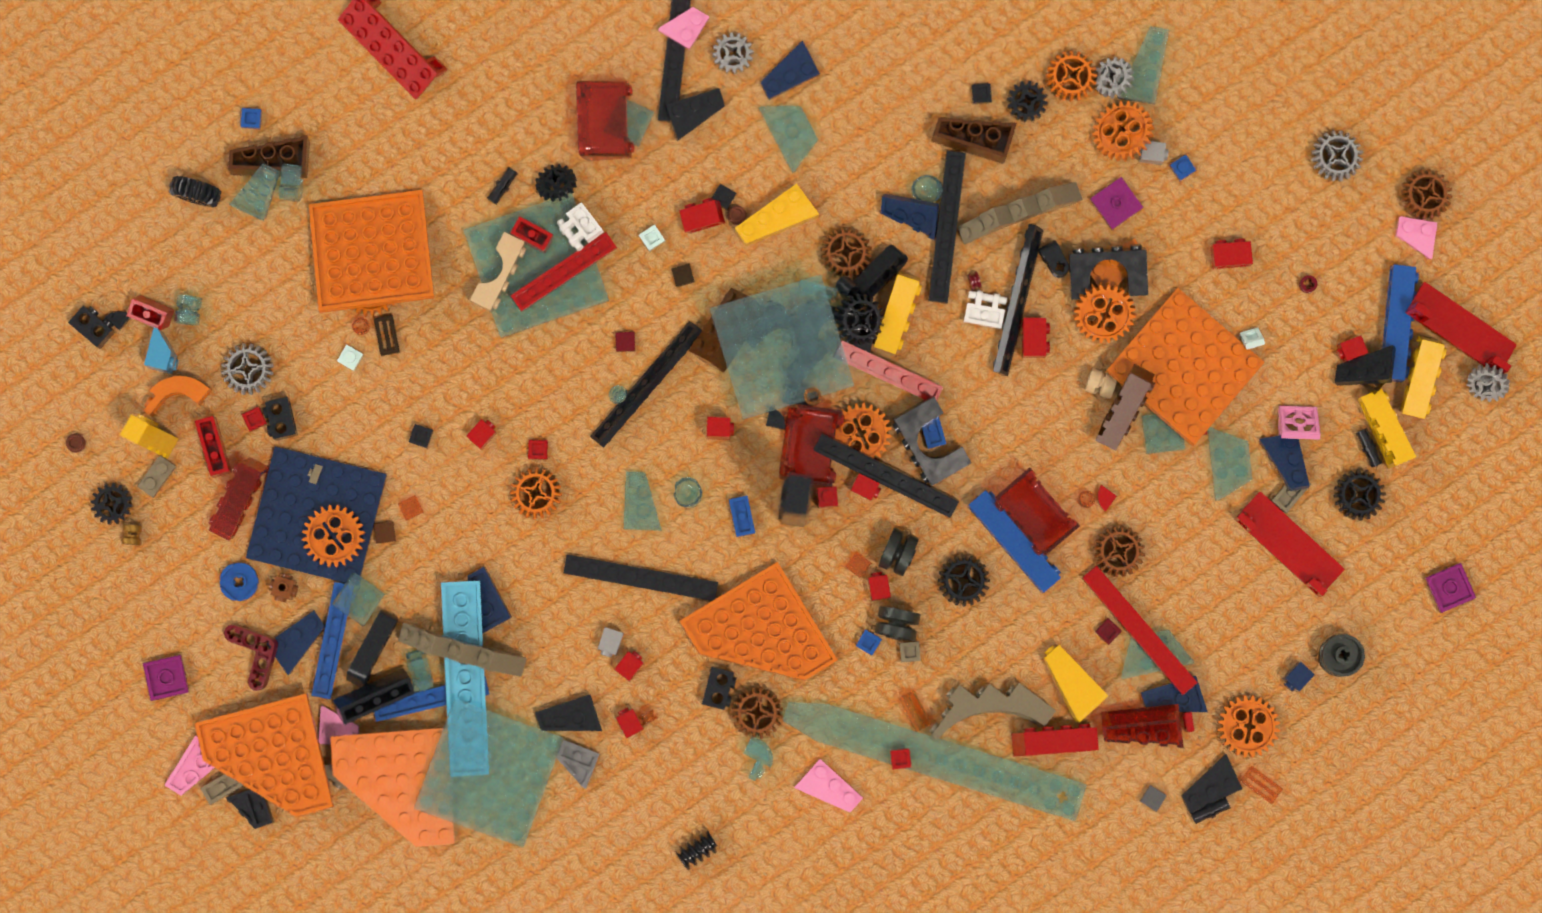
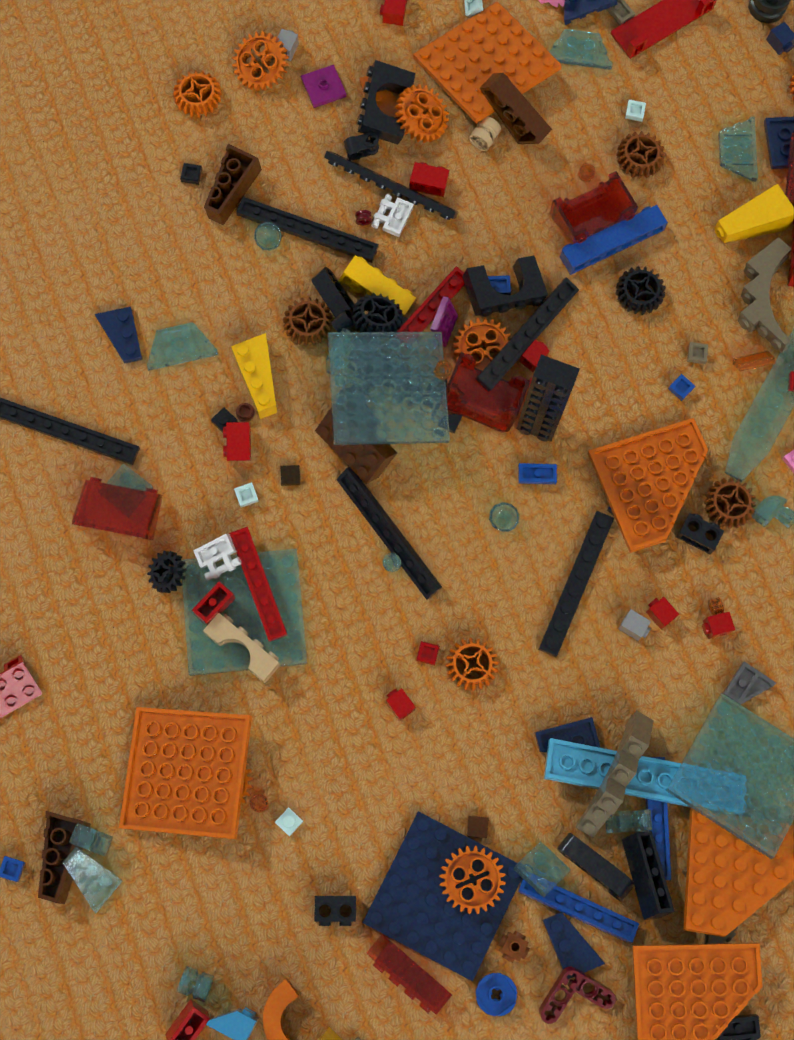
camera: 75 degrees left, 10 degrees down
(195, 191) = (71, 946): black gear -> none
(213, 446) = (348, 989): red brick -> none
(254, 419) = (328, 938): red tile -> none
(255, 368) = (288, 934): light grey gear -> none
(315, 473) = (401, 886): dark tan plate -> none
(333, 726) = (670, 927): bright pink wing -> none
(390, 351) = (270, 778): dark brown tile -> none
(410, 508) = (457, 794): clear orange tile -> none
(421, 436) = (387, 766): black plate -> none
(502, 185) = (154, 627): black pin -> none
(570, 716) = (700, 682): black wing -> none
(625, 341) = (341, 544): dark red tile -> none
(639, 504) = (503, 567): clear light blue wing -> none
(685, 27) = (49, 415): bright pink wing -> none
(693, 111) = (133, 428): black wing -> none
(719, 428) = (449, 471): red brick -> none
(726, 47) = (79, 383): light grey gear -> none
(858, 565) = (605, 380): clear orange tile -> none
(876, 388) = (445, 320): none -> magenta plate
(879, 586) = (631, 365): red brick -> none
(897, 623) = (673, 354): pearl dark grey wheel -> none
(900, 552) = (604, 337): pearl dark grey wheel -> none
(913, 212) = (286, 254): dark blue wing -> none
(1019, 210) = (311, 165): dark tan arch -> none
(1029, 109) = (218, 137): black gear -> none
(1105, 498) = (588, 156): red tile -> none
(1108, 631) = (710, 182): dark red tile -> none
(1121, 78) = (204, 52): light grey gear -> none
(1139, 630) = (717, 152): red tile -> none
(1148, 67) = (210, 33): clear light blue wing -> none
(1160, 436) = (544, 97): clear light blue plate -> none
(1171, 536) = (635, 110): none -> light aqua plate
(1182, 167) = (306, 26): blue plate -> none

